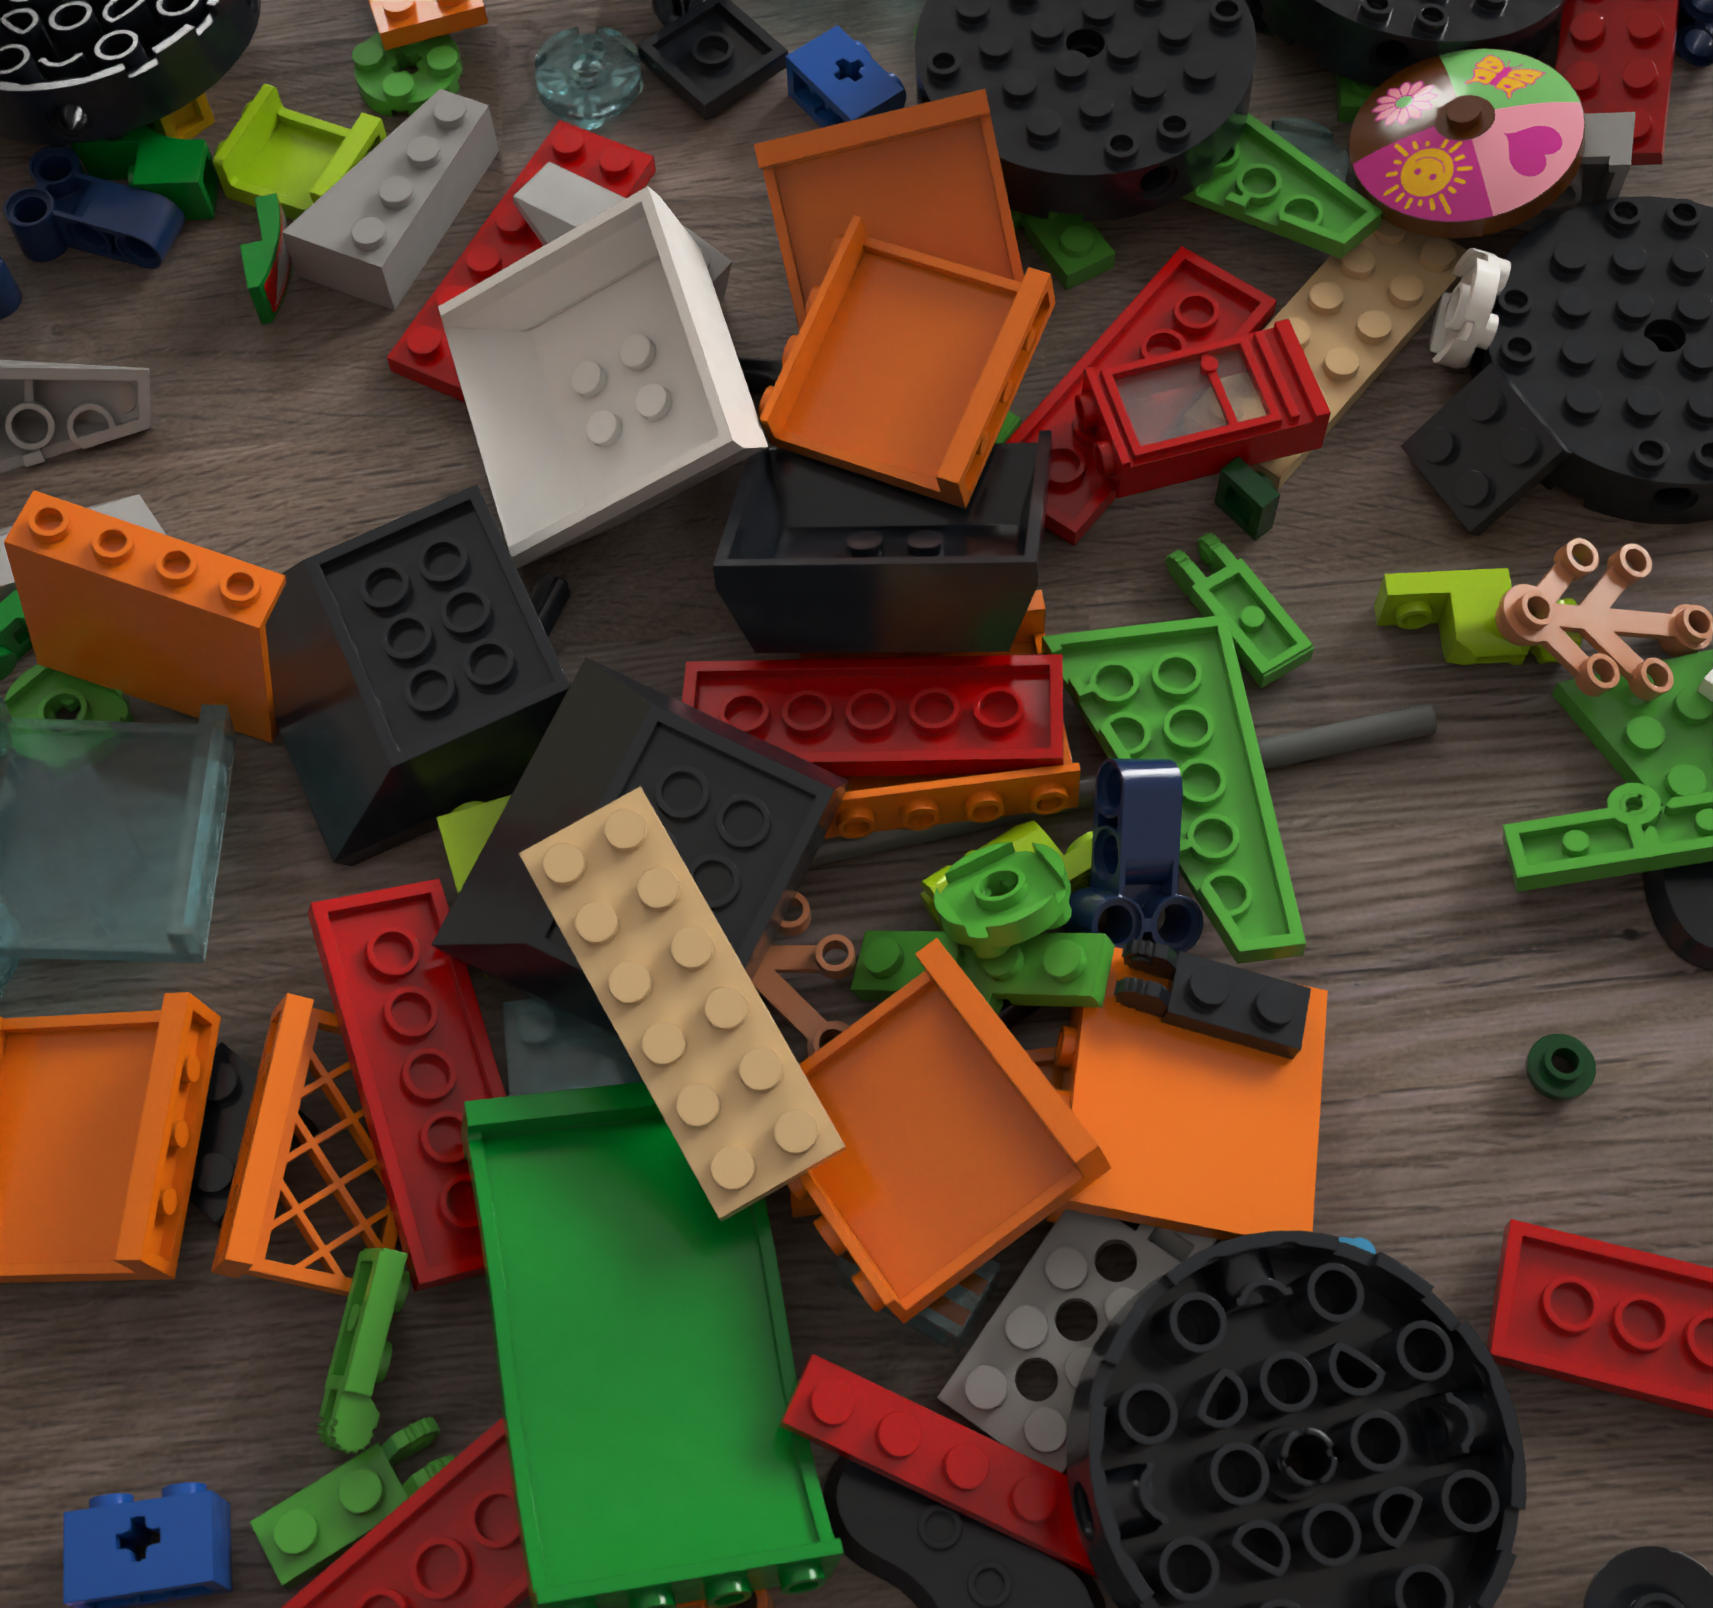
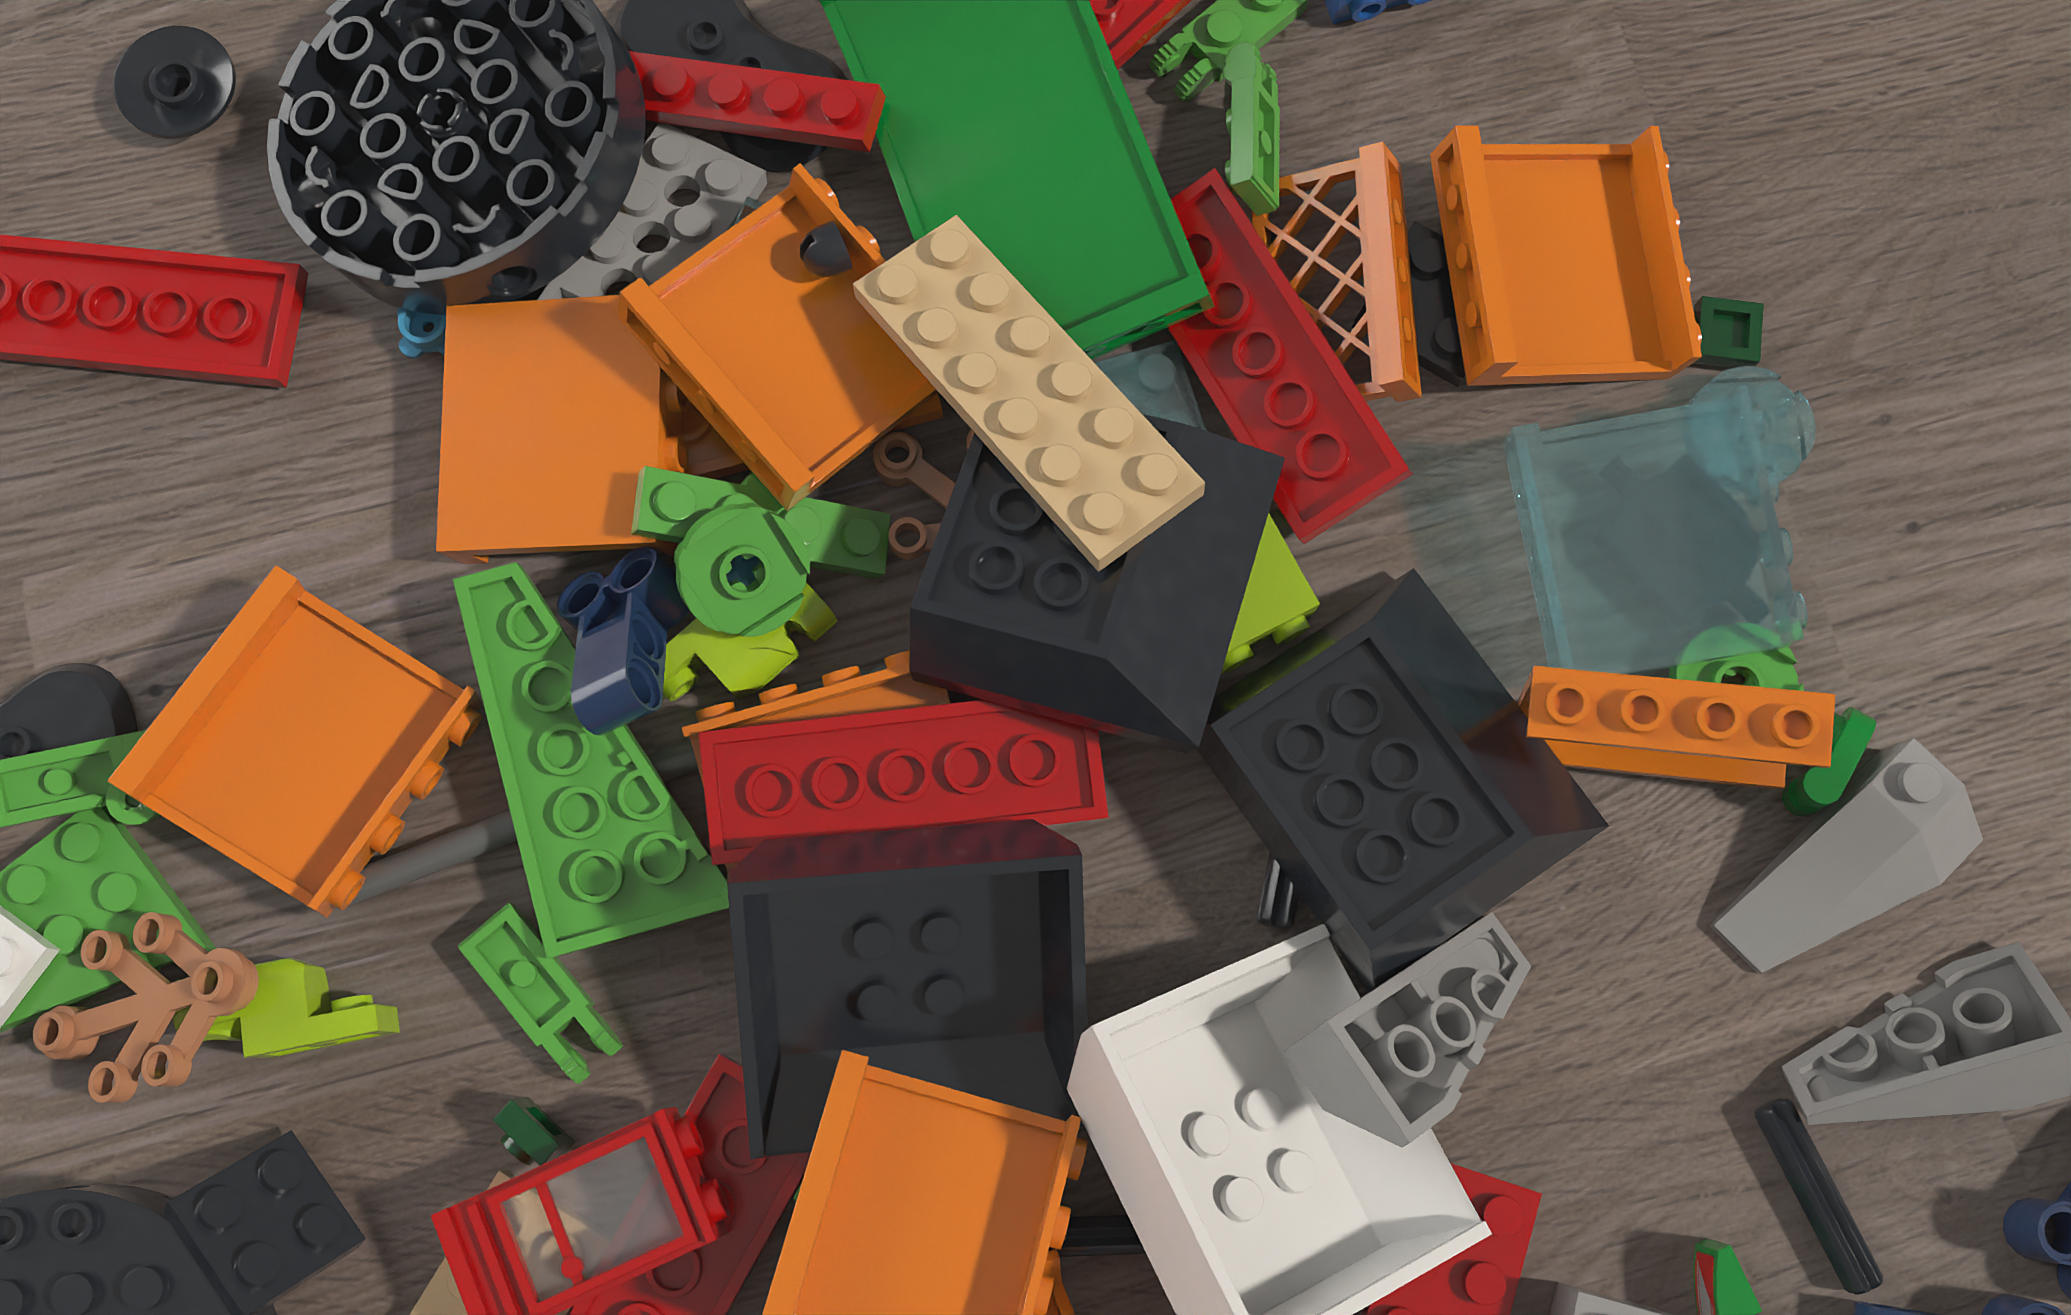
camera: 170 degrees right, 15 degrees up
(160, 335) = (1819, 1196): none -> black axle
(479, 429) = (1409, 1044): none -> light grey wedge
(865, 1207) = (825, 251): none -> black hinge
(1215, 998) = (531, 505): black hinge -> none
(1460, 830) = (299, 744): none -> orange panel
(1548, 1079) = (242, 544): dark green plate -> none

